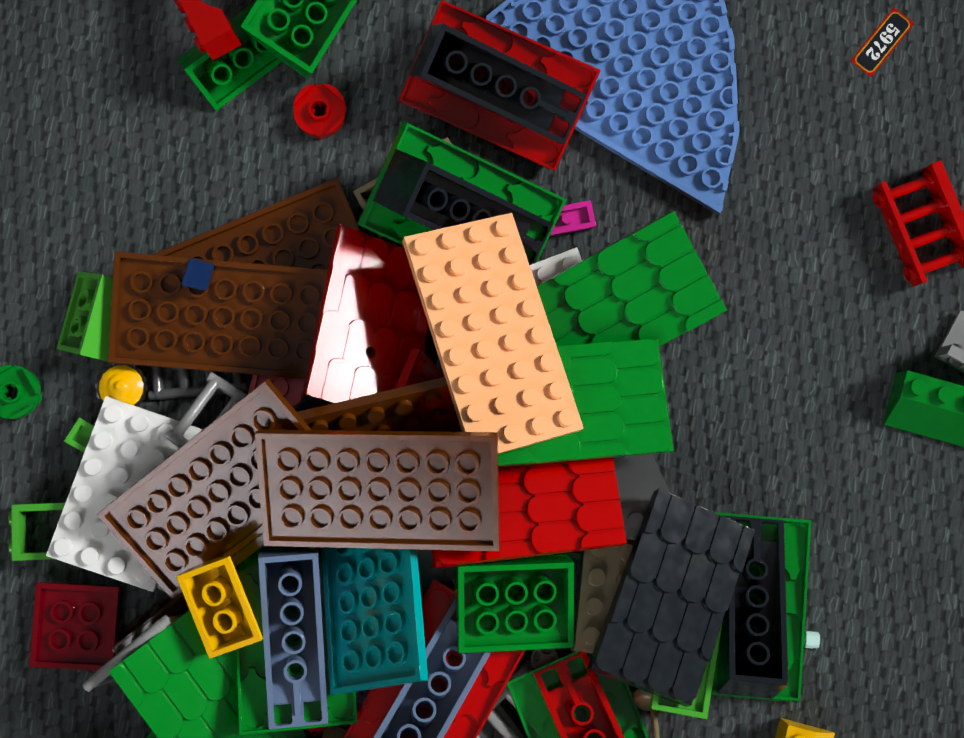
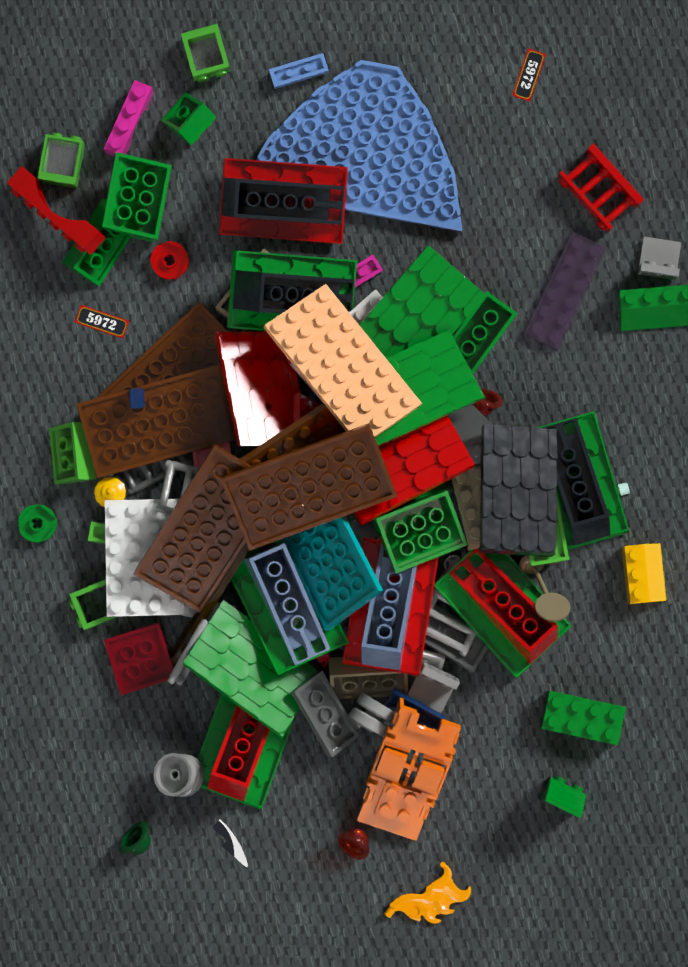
camera: 20 degrees left, 0 degrees up
(202, 158) = (101, 321): none -> sticker
(219, 606) = (236, 598): yellow slope -> none
(679, 458) = (491, 401): none -> clear red hat
(703, 355) = (483, 330): none -> green brick
(829, 343) = (565, 291): none -> clear purple plate

